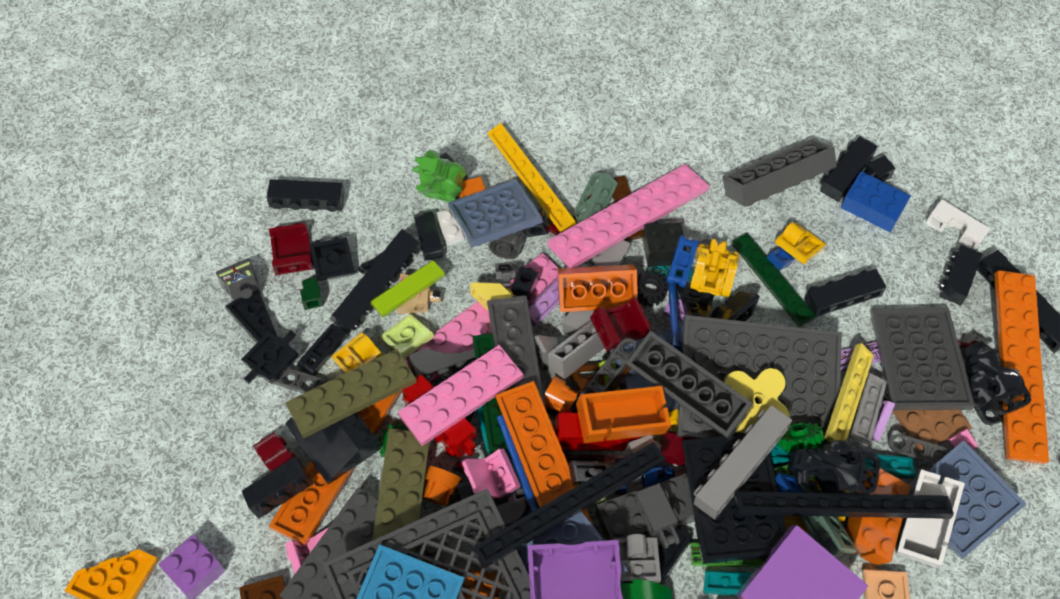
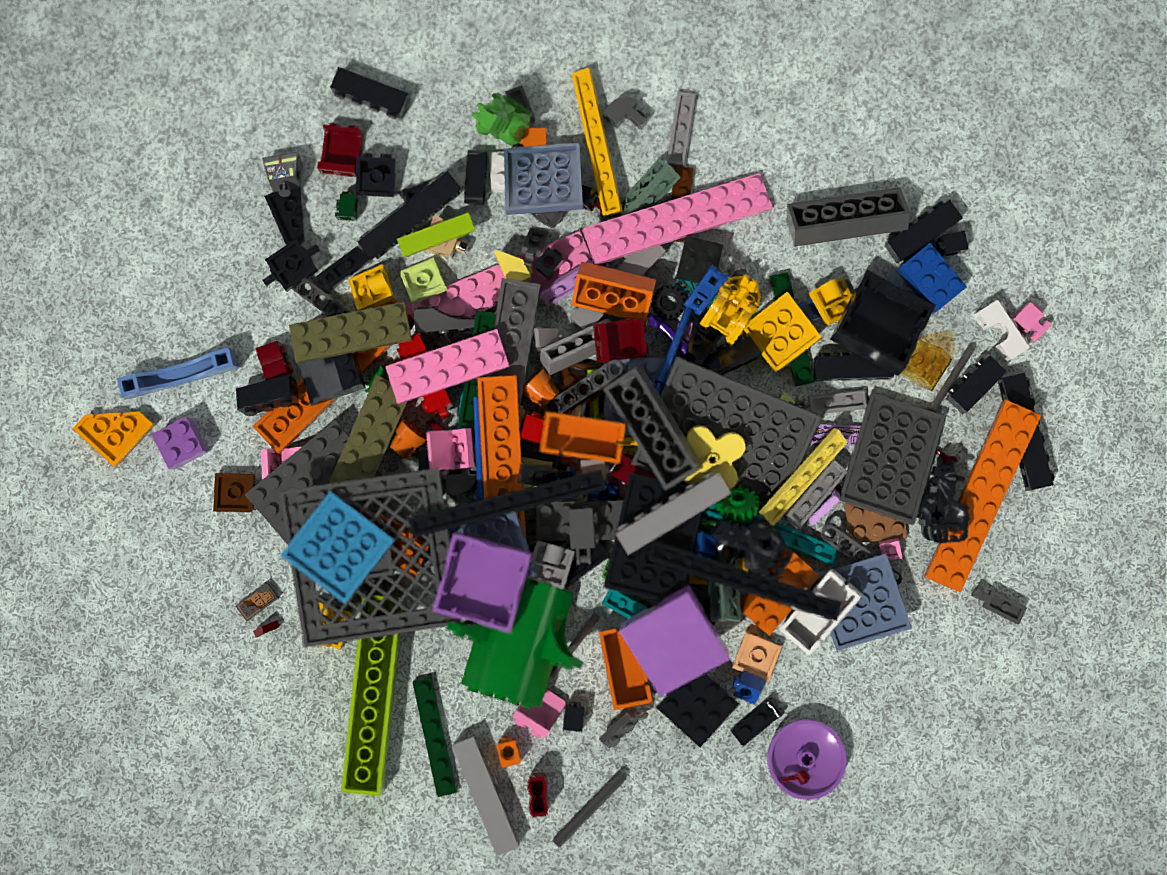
camera: 25 degrees right, 25 degrees up
(142, 515) = (157, 380): none -> medium blue arch
(545, 146) = (623, 109): none -> dark grey brick
(600, 148) = (681, 129): none -> light grey tile
(658, 310) = (658, 323): none -> dark purple plant
(770, 277) = (782, 332): none -> yellow plate
(851, 324) = (838, 402): none -> light grey tile
(854, 244) = (882, 323): none -> black tile
(905, 271) = (927, 365): none -> clear yellow slope
(936, 277) = (951, 379): none -> flat silver bar
(975, 207) = (1028, 318): none -> bright pink brick

